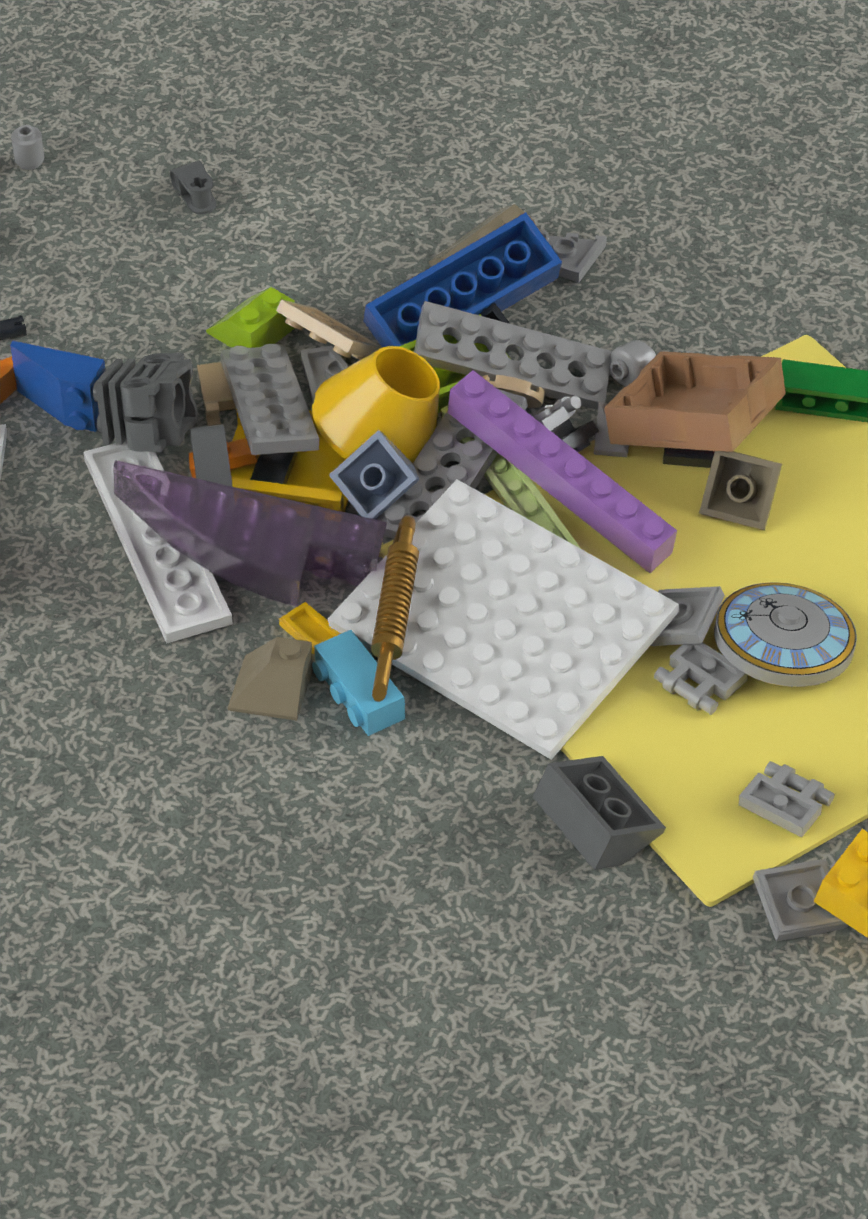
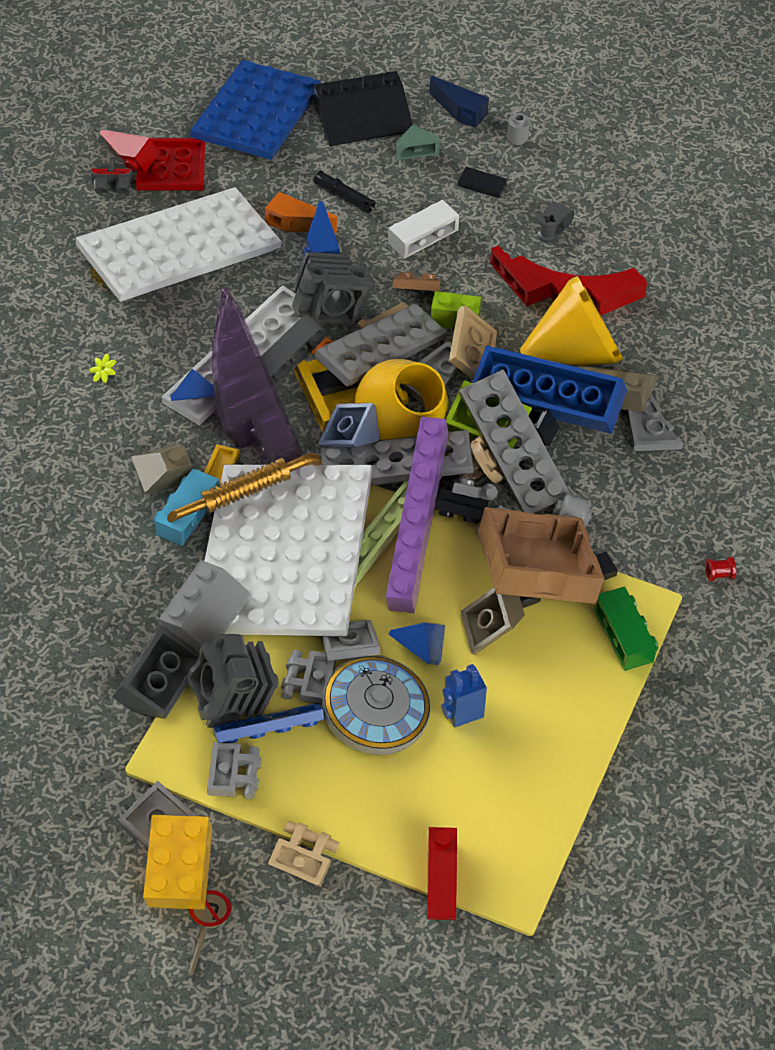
camera: 55 degrees right, 5 degrees up
(62, 667) = (103, 368): none -> neon yellow plant
(73, 218) = (482, 182): none -> black tile
(104, 295) = (423, 229): none -> white brick
(187, 591) = (193, 387): none -> blue slope
(190, 333) = (406, 280): none -> medium nougat plate
(274, 242) = (535, 283): none -> red arch
(396, 227) = (572, 331): none -> yellow cone
(547, 714) = (204, 605): none -> light grey slope
(679, 732) = (232, 679): none -> dark grey piece
(724, 554) = (422, 639): none -> blue slope
(743, 738) = (278, 721): none -> plate
(797, 286) = (720, 568): none -> red bush
(838, 546) = (464, 696): none -> blue hinge

